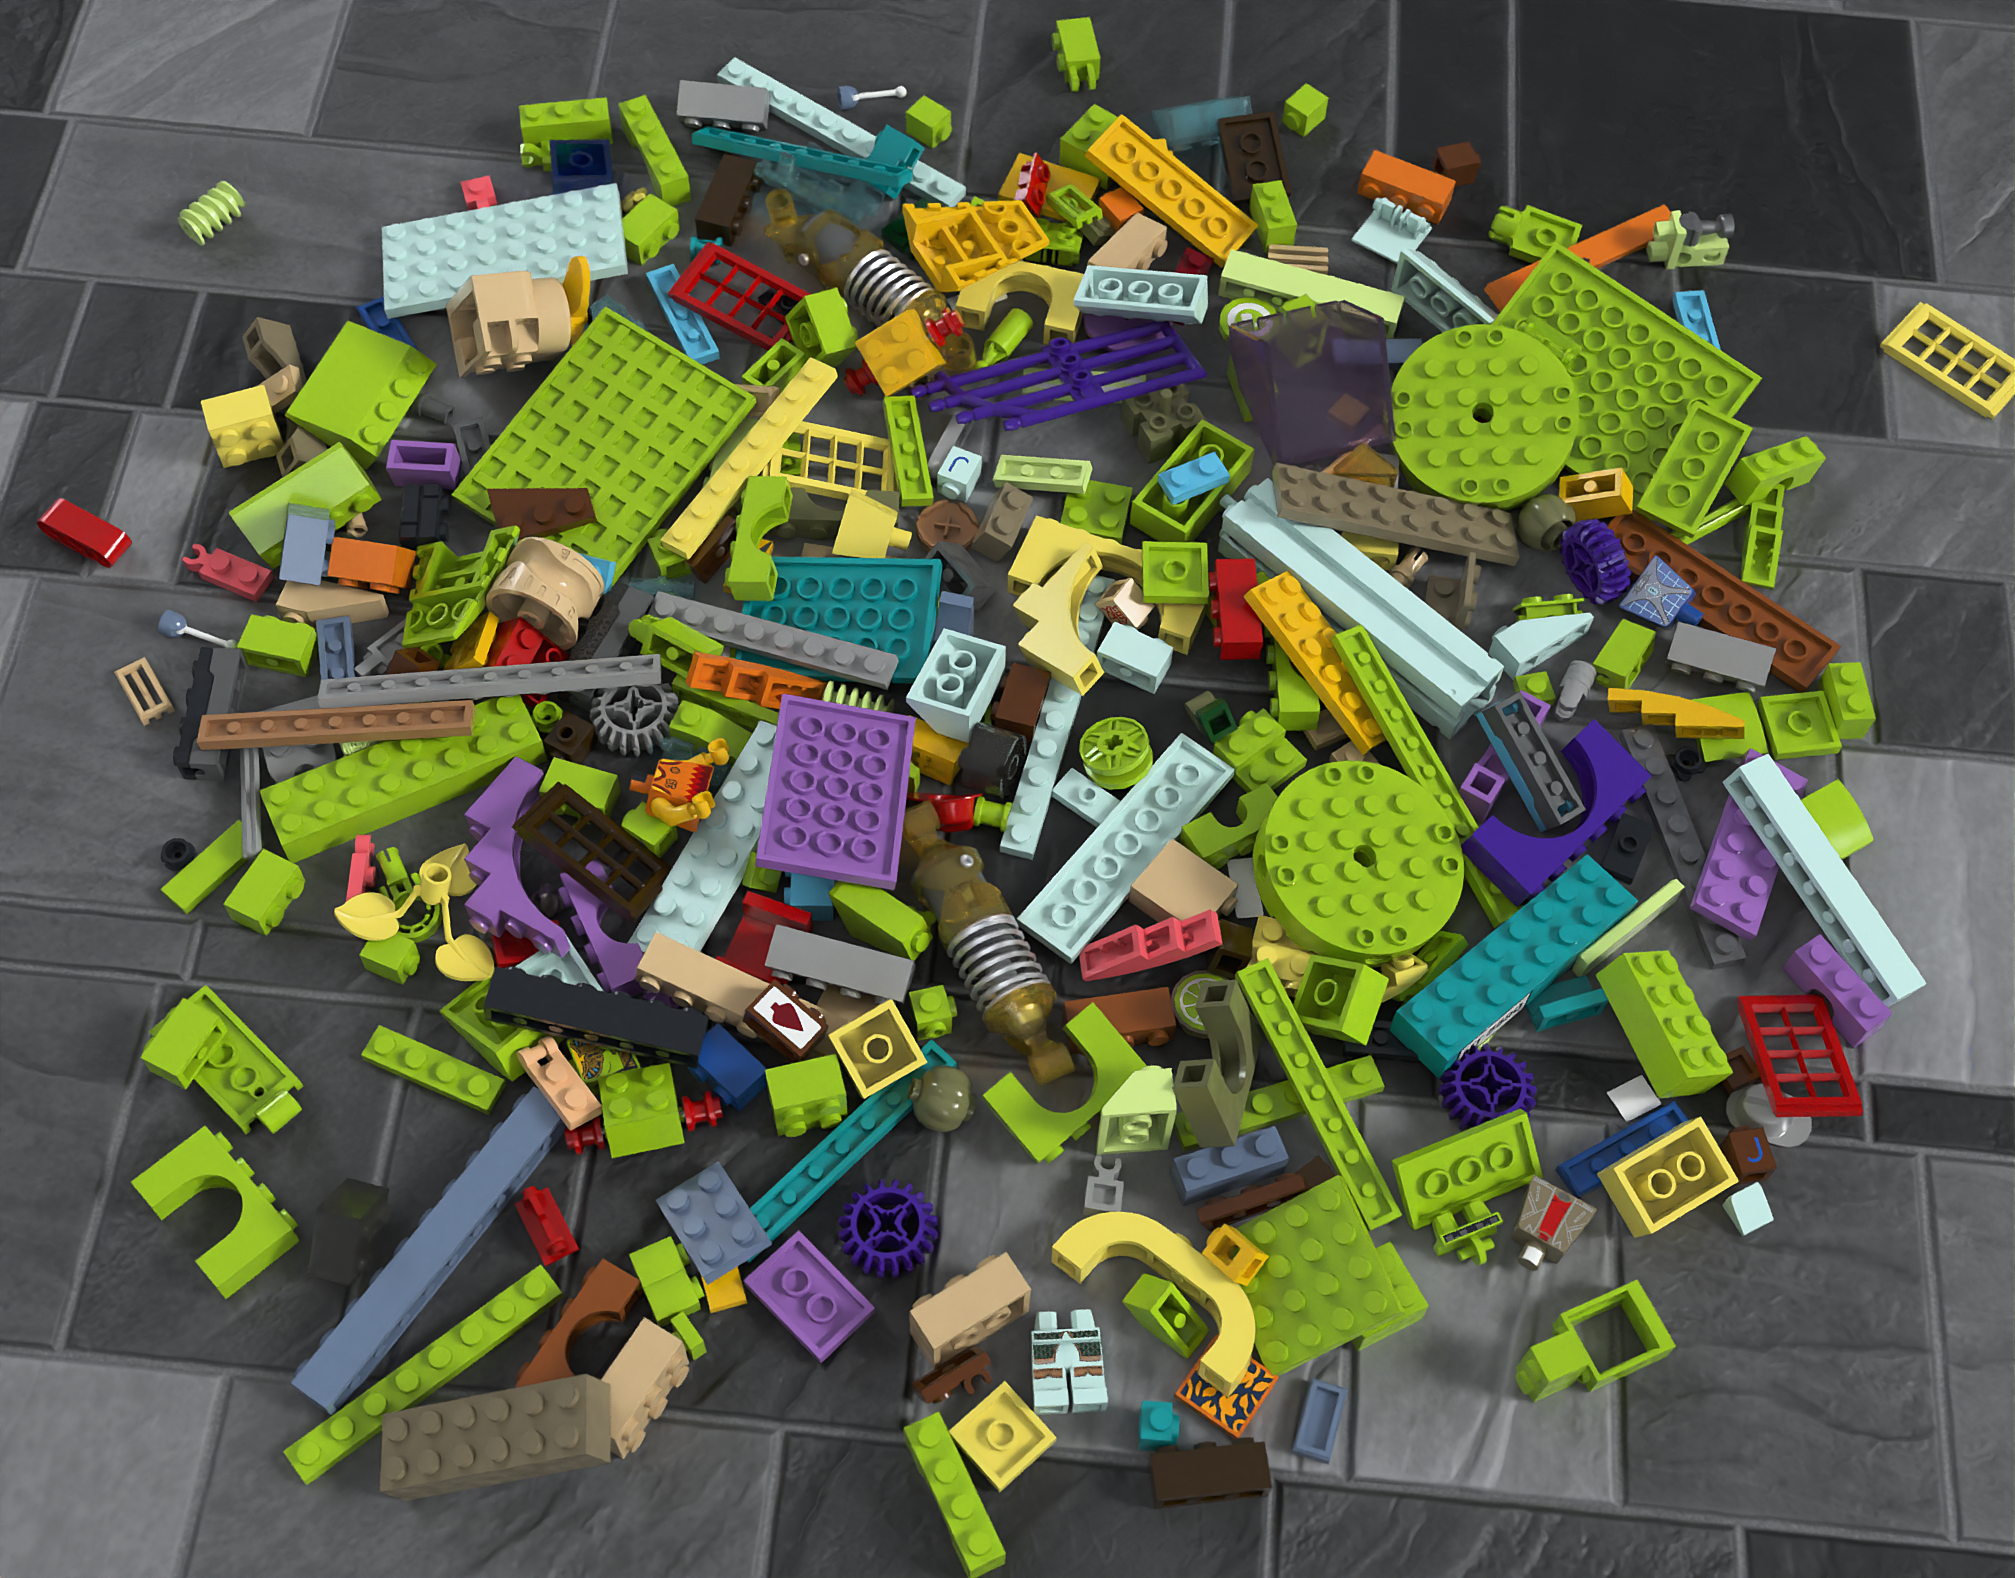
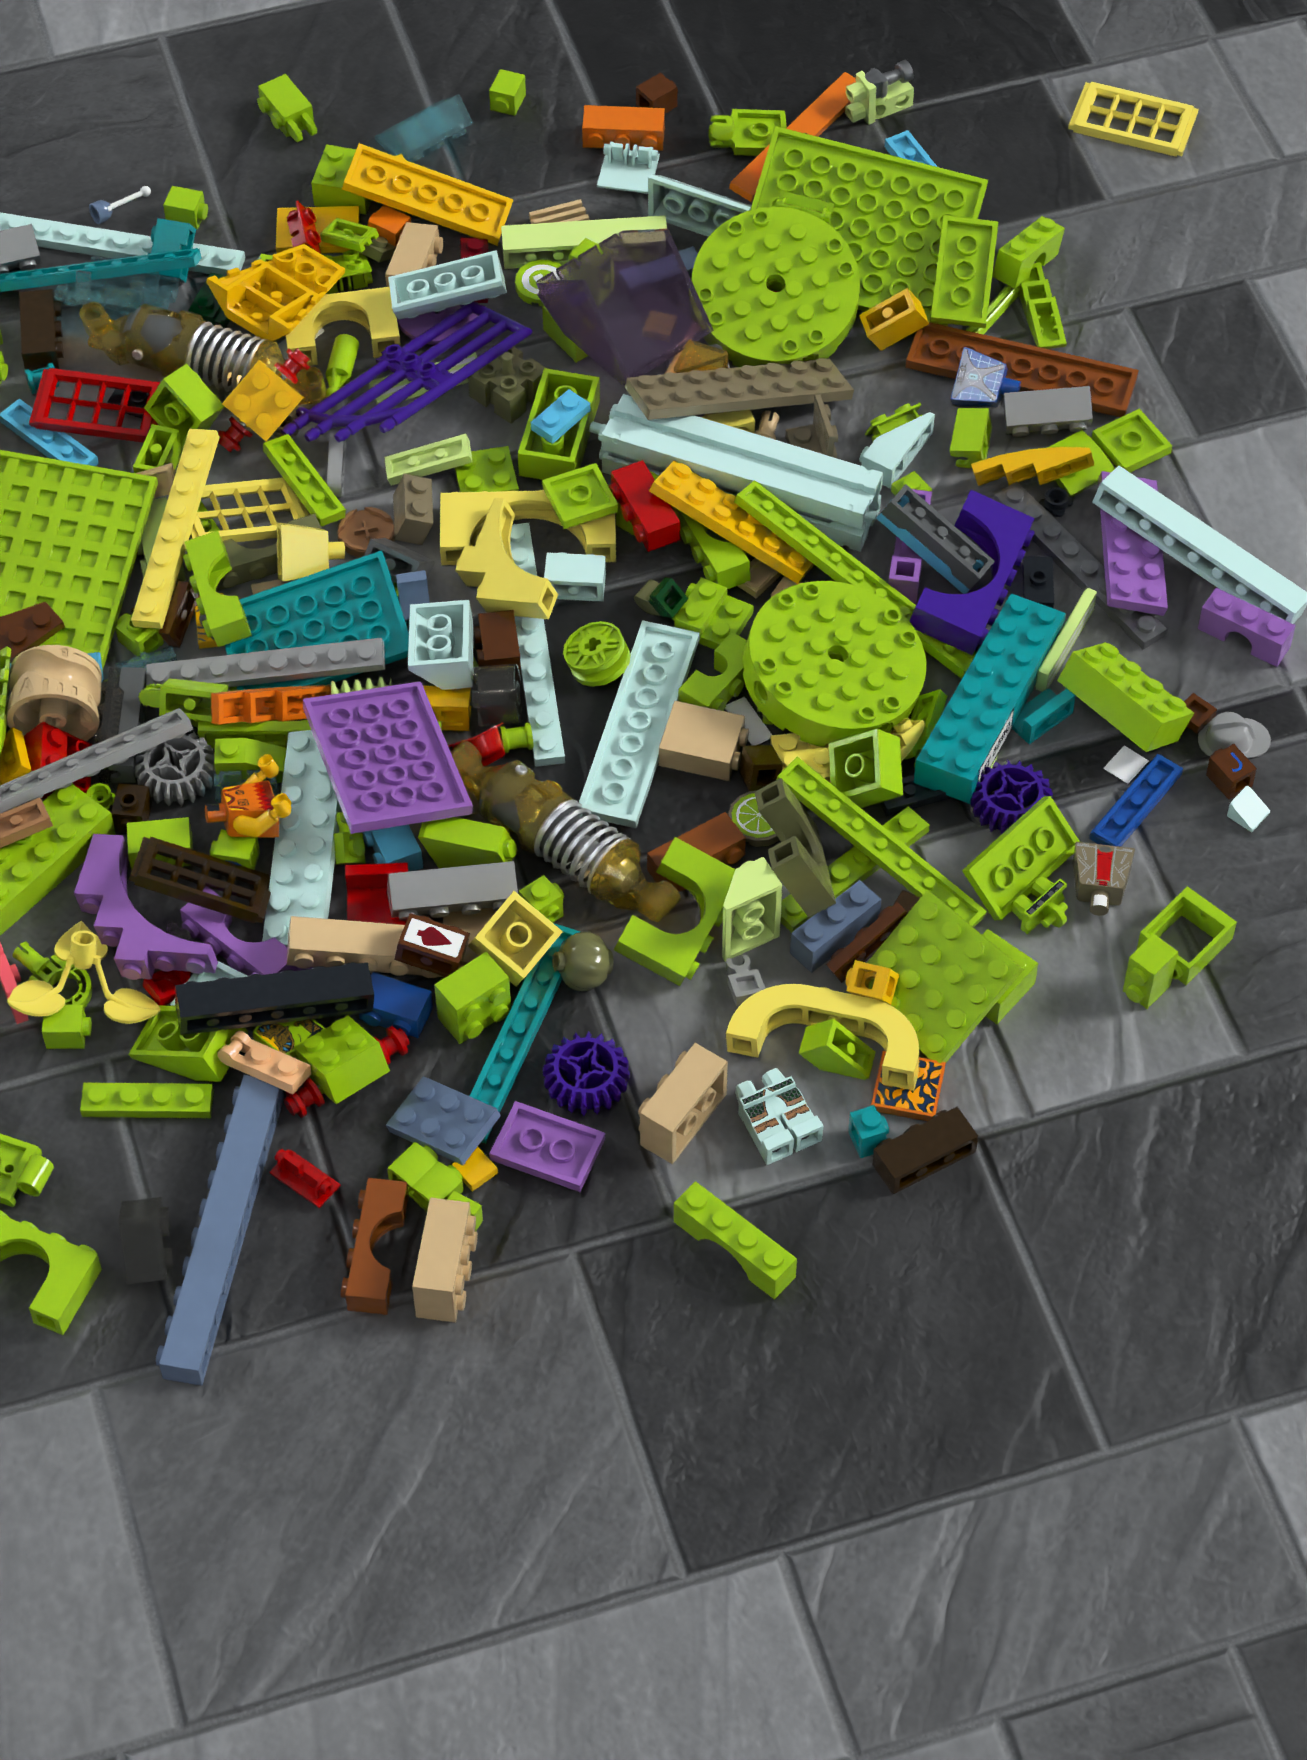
camera: 20 degrees left, 5 degrees down
(423, 1374) = (260, 1324): lime plate -> none
(496, 1438) = (353, 1330): dark tan brick -> none
(959, 474) = (356, 484): light aqua brick -> none
(959, 1370) = (693, 1153): reddish brown plate -> none
(1002, 1436) = (752, 1185): light yellow plate -> none
(1084, 797) = (586, 699): light aqua plate -> none
(1125, 604) = (548, 536): tan brick -> none
(1151, 947) = (691, 792): coral slope -> none
(1251, 153) = (483, 145): dark brown plate -> none
(1273, 214) = (522, 185): lime brick -> none
(1319, 1421) = (991, 1082): sand blue tile -> none
(1546, 519) = (860, 353): olive plant -> none
(1574, 689) = (942, 476): light grey hinge -> none
(1595, 561) = (916, 370): dark purple gear -> none
(1667, 1177) = (1177, 806): light yellow brick -> none
(1799, 1106) = (1290, 700): red piece -> none
(1839, 818) = (1194, 498): lime slope -> none
(1847, 699) = (1161, 407): lime brick -> none

